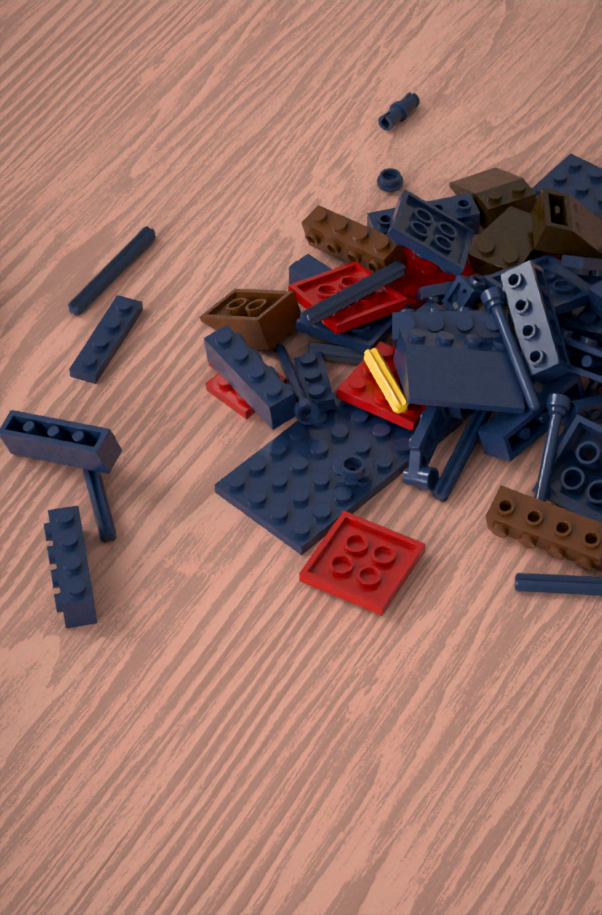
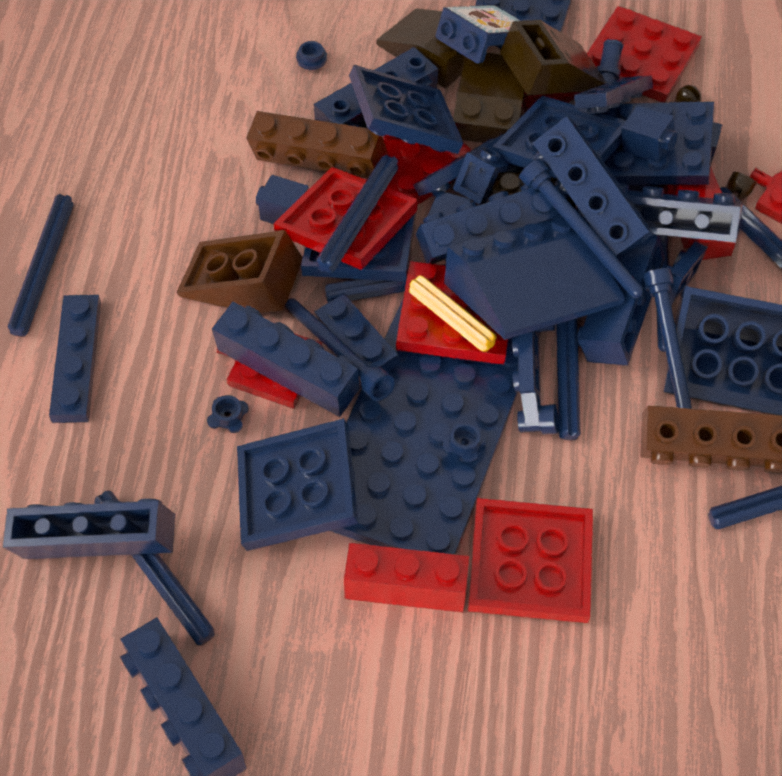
camera: 25 degrees left, 10 degrees up
(195, 405) = (224, 405): none -> dark blue plate
(216, 460) = (296, 485): none -> dark blue plate
(263, 542) = (406, 577): none -> red brick
(517, 187) = (474, 29): none -> dark blue panel

